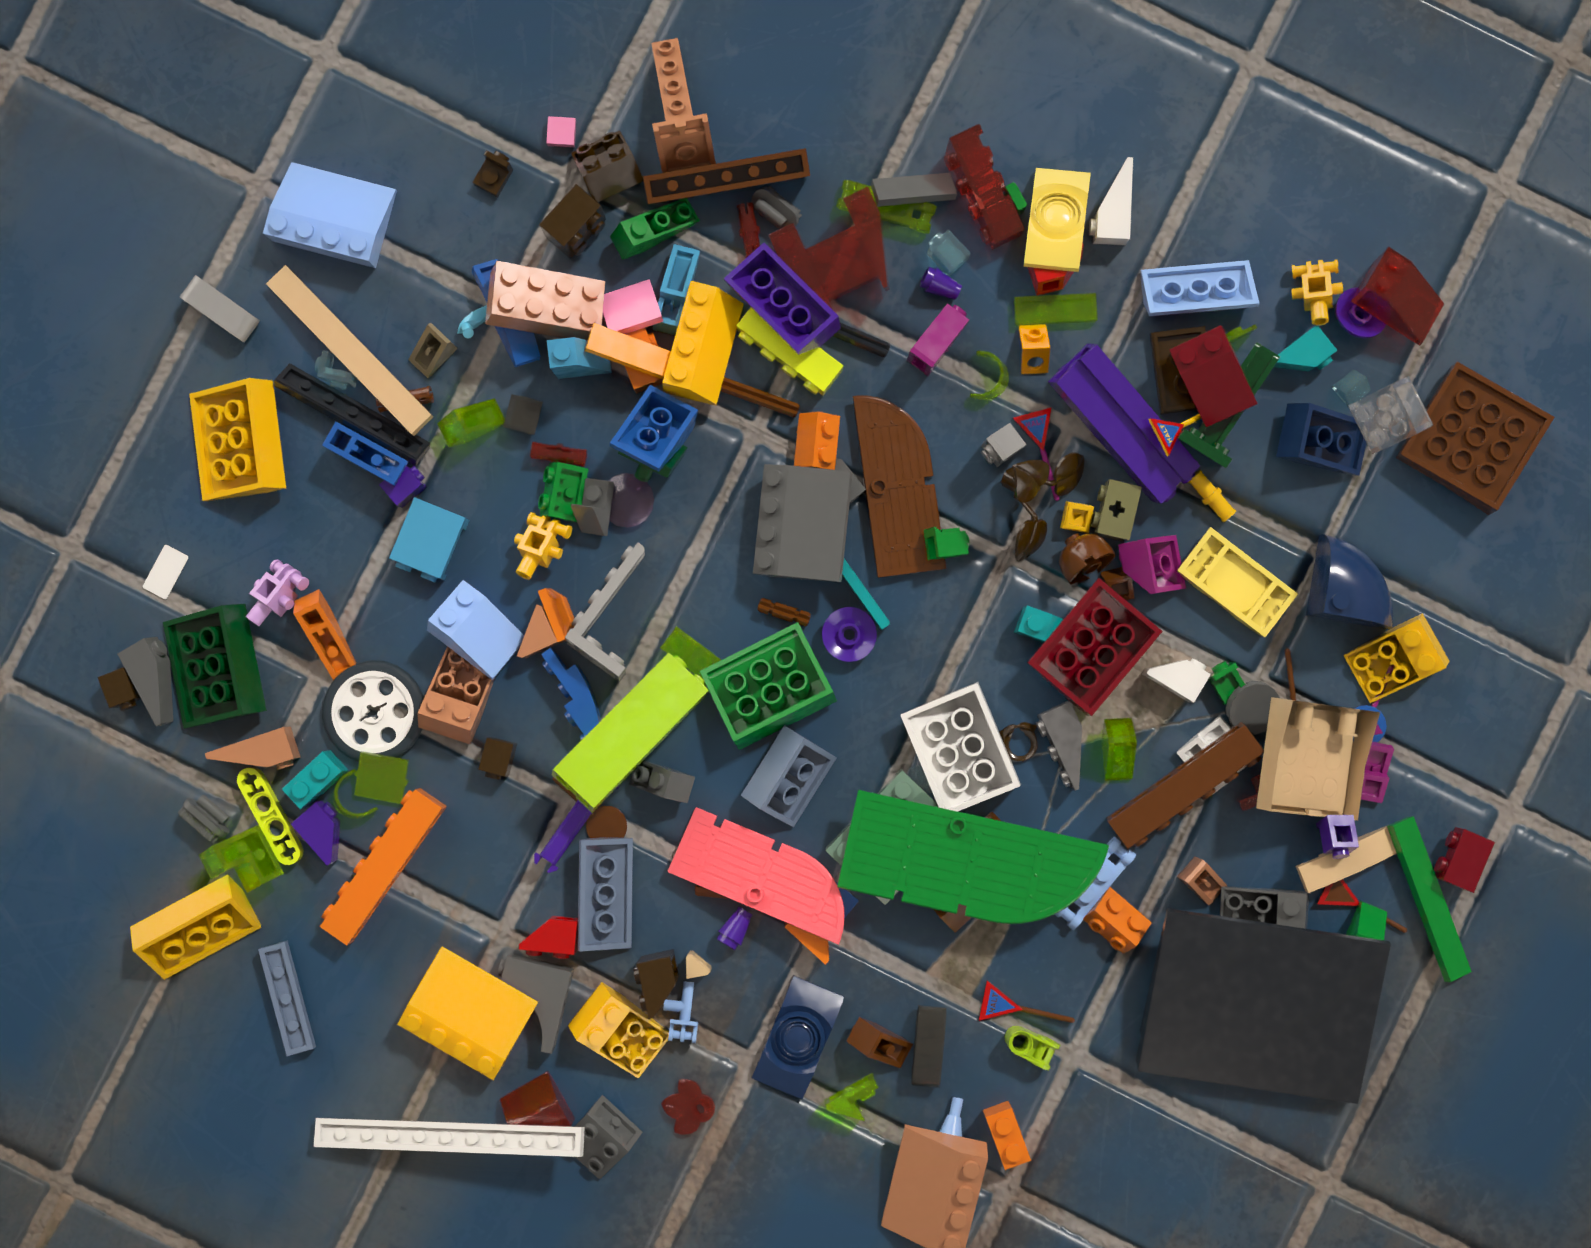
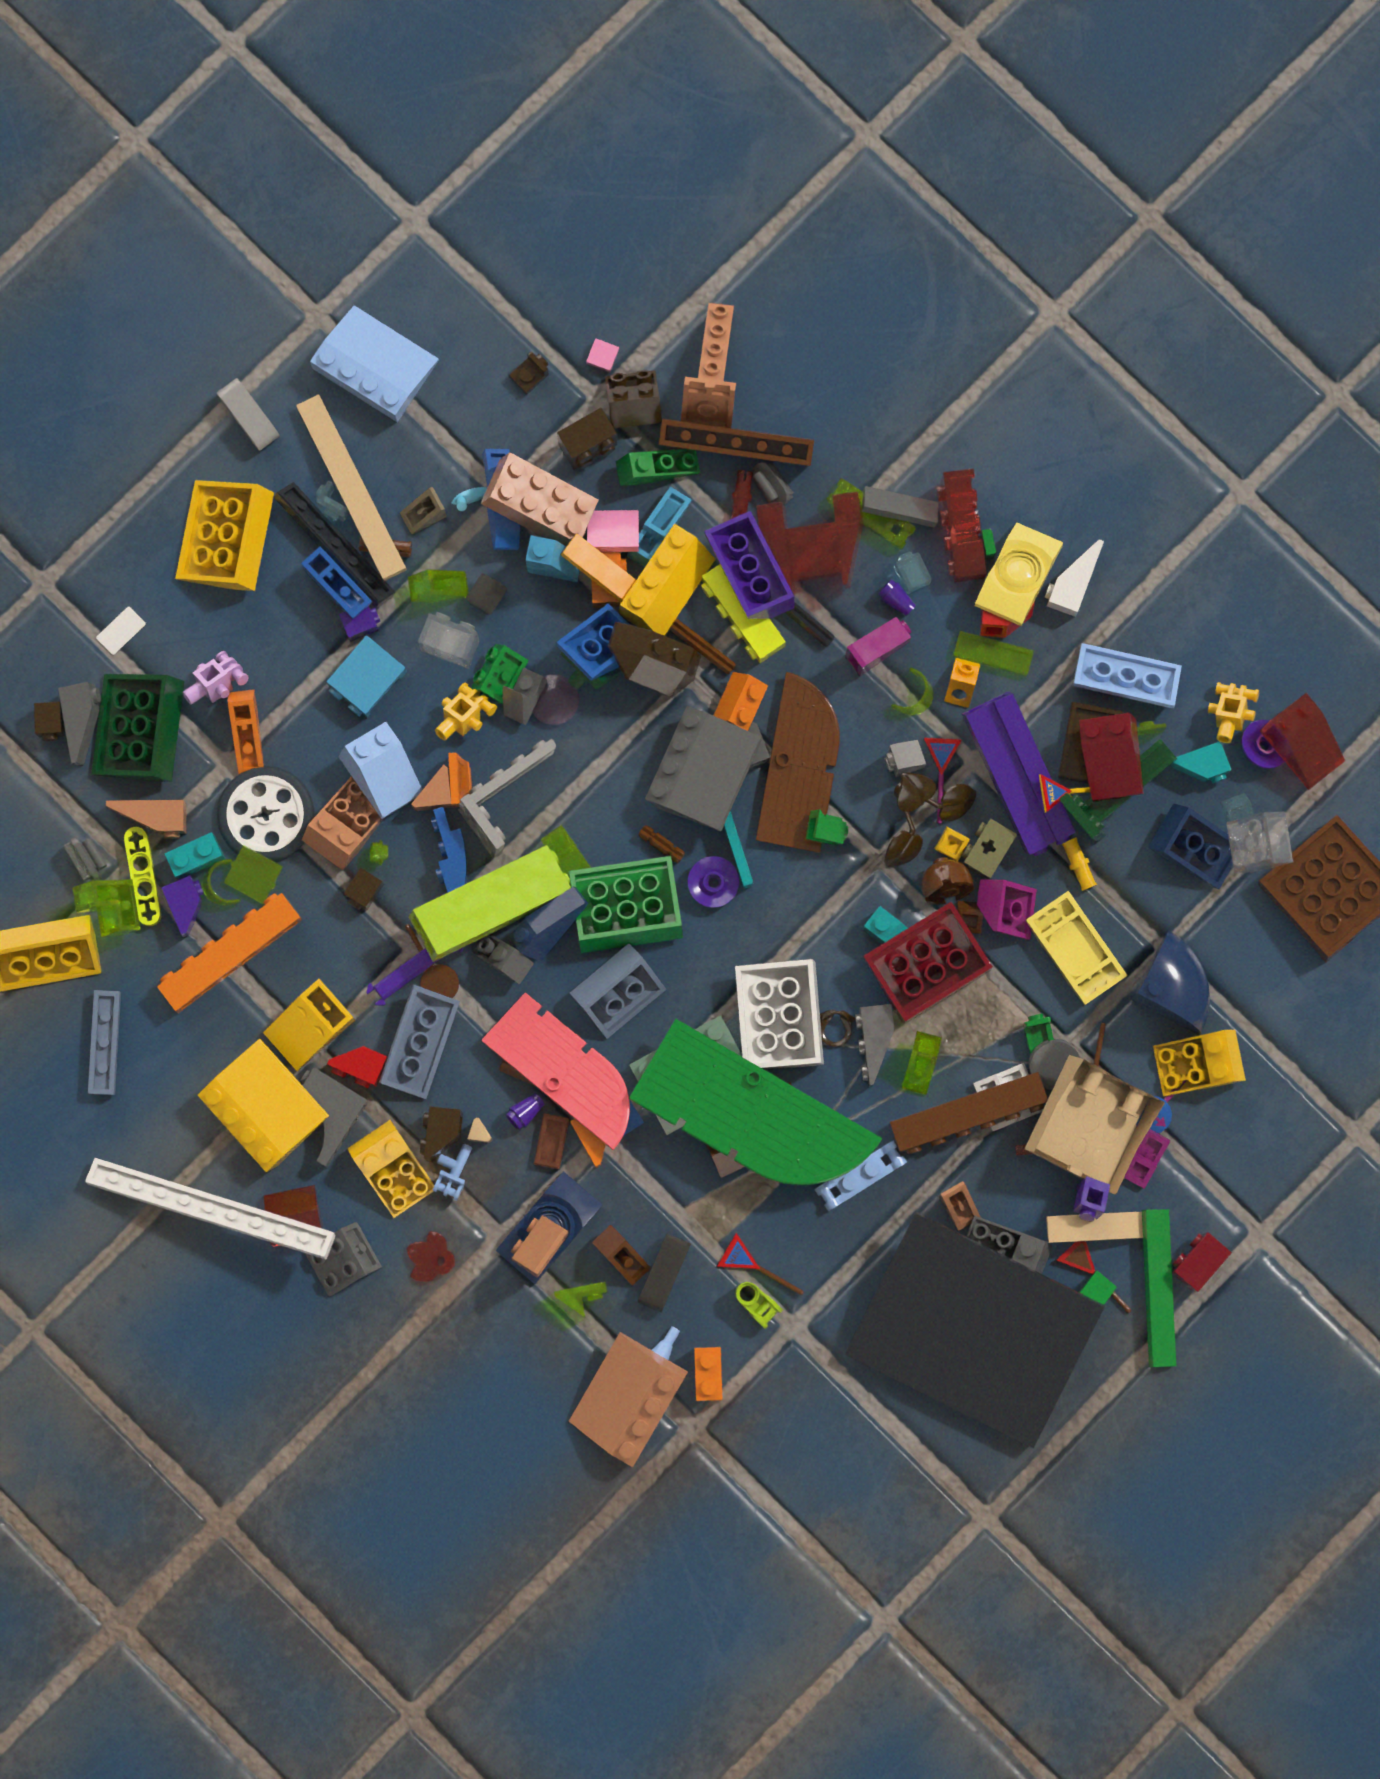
camera: 15 degrees right, 5 degrees down
(488, 912) = (308, 1025): none -> yellow slope
(499, 475) = (449, 640): none -> clear brick
(500, 714) = (378, 852): none -> clear neon green plate
(558, 453) = (506, 638): clear red pin -> none
(695, 735) = (546, 926): none -> dark blue slope
(714, 427) = (653, 659): none -> dark brown wedge
(771, 949) = (551, 1141): none -> copper tile
(796, 1067) = (539, 1246): none -> nougat slope
(1117, 921) = (870, 1216): orange bracket -> none
(1180, 677) = (997, 1016): white slope -> none

